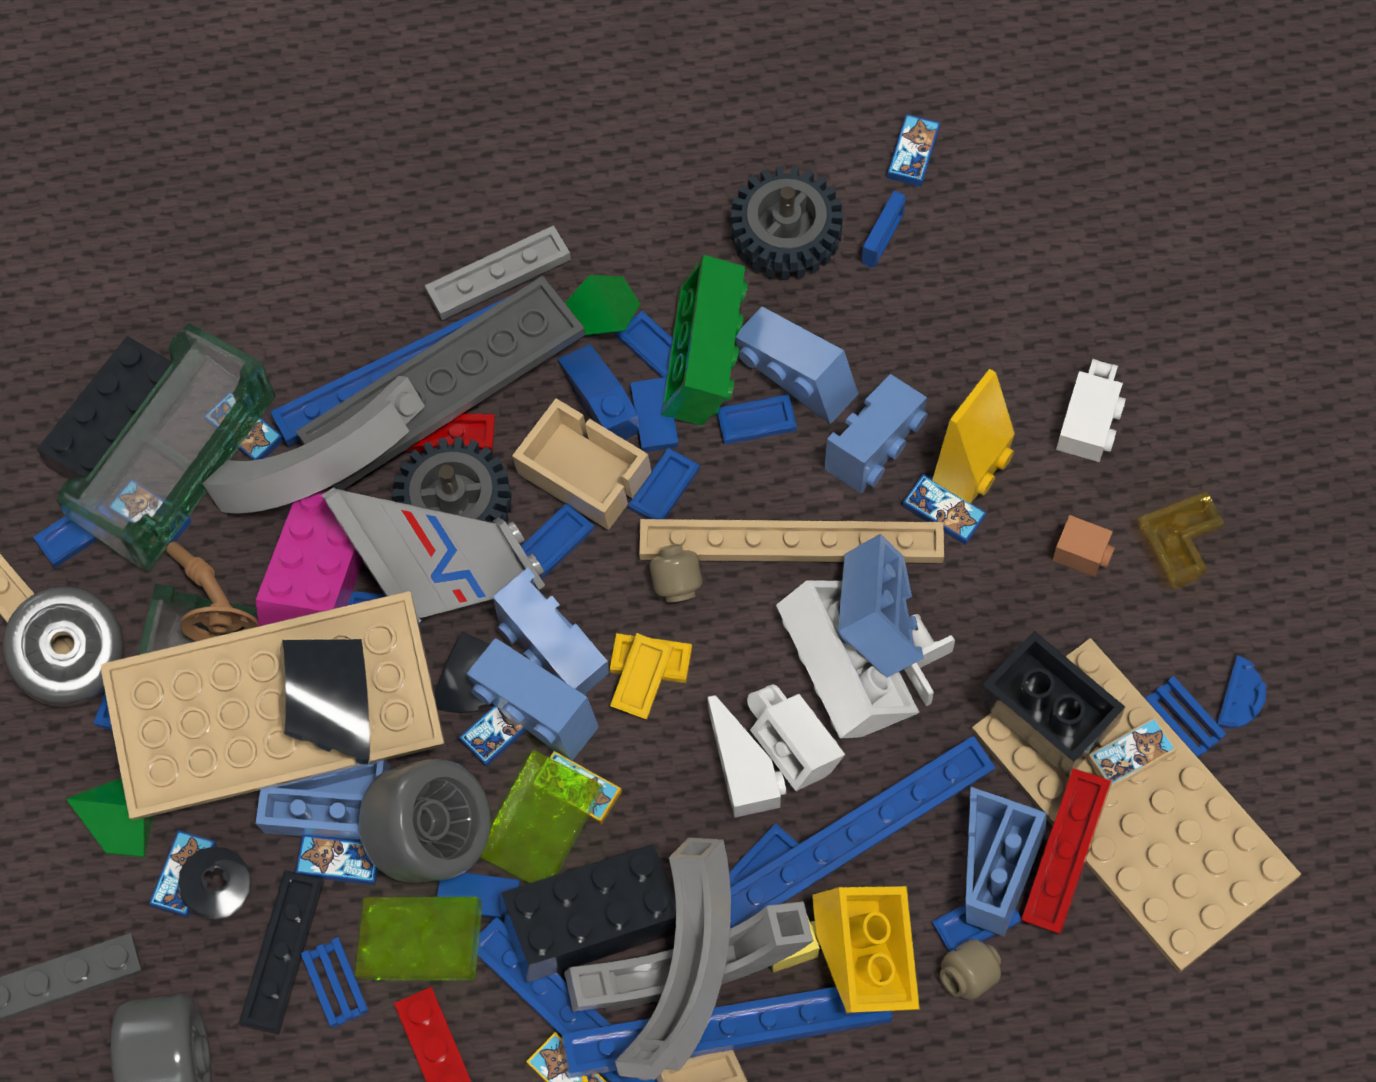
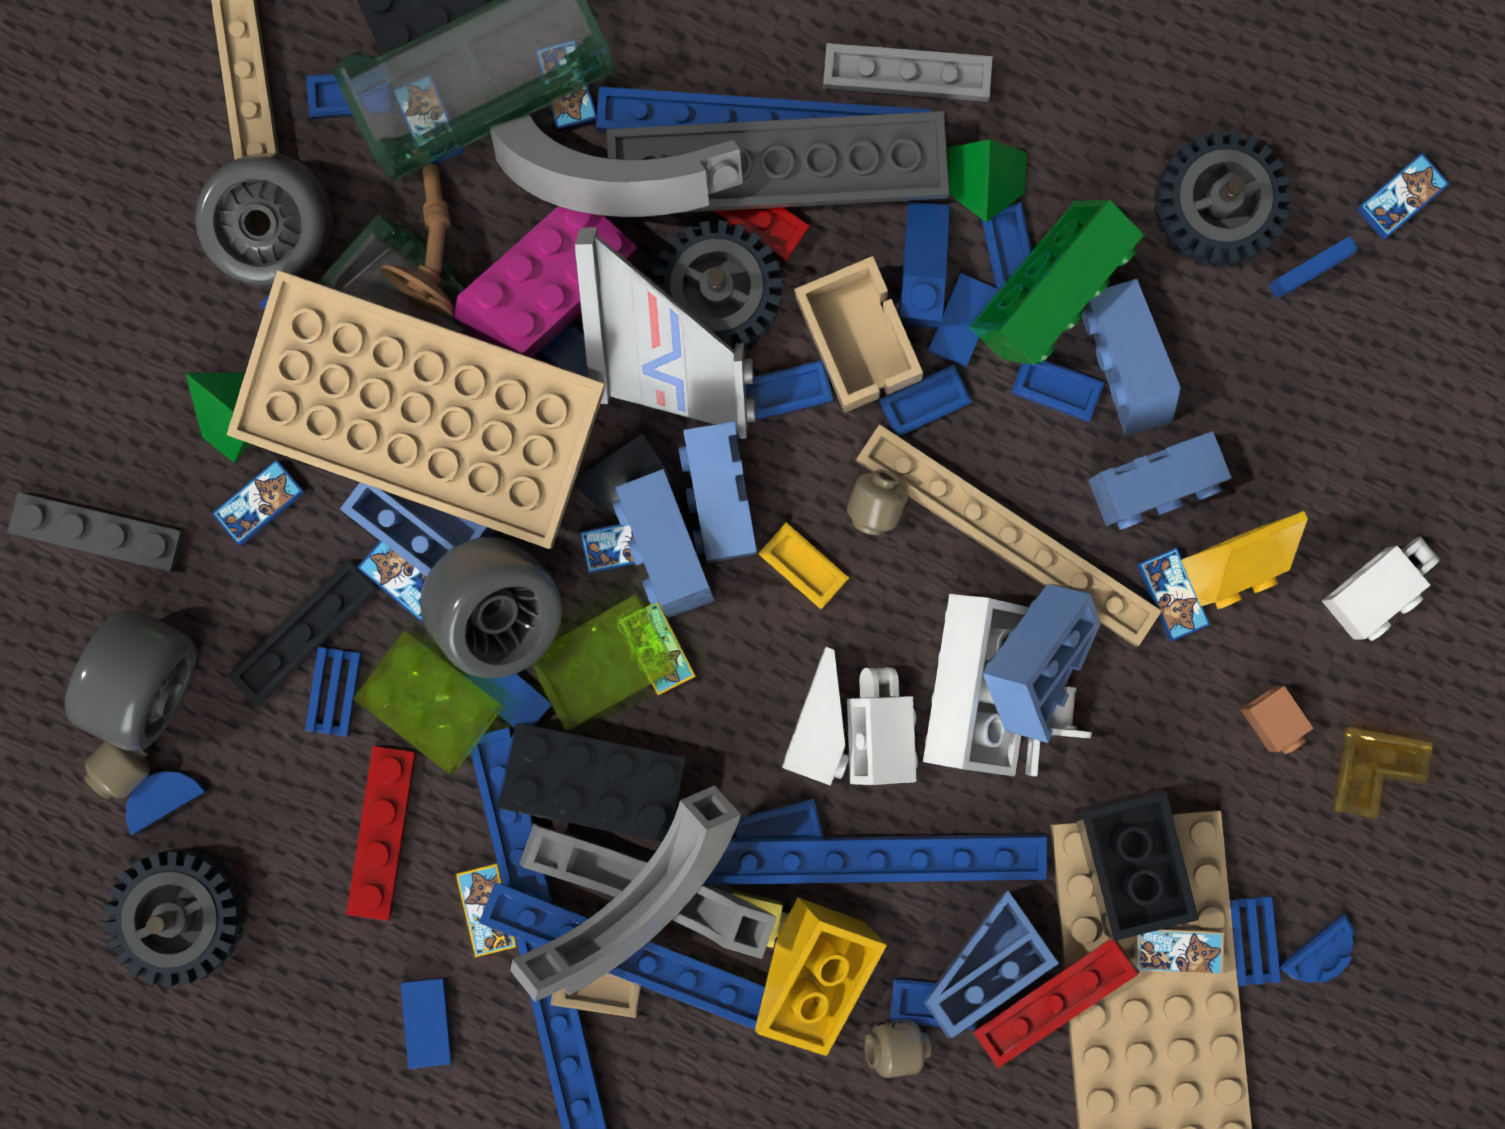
camera: 30 degrees right, 20 degrees up
(194, 886) = (299, 540): black piece -> none
(326, 695) = (463, 440): black slope -> none
(642, 676) = (782, 581): yellow tile -> none

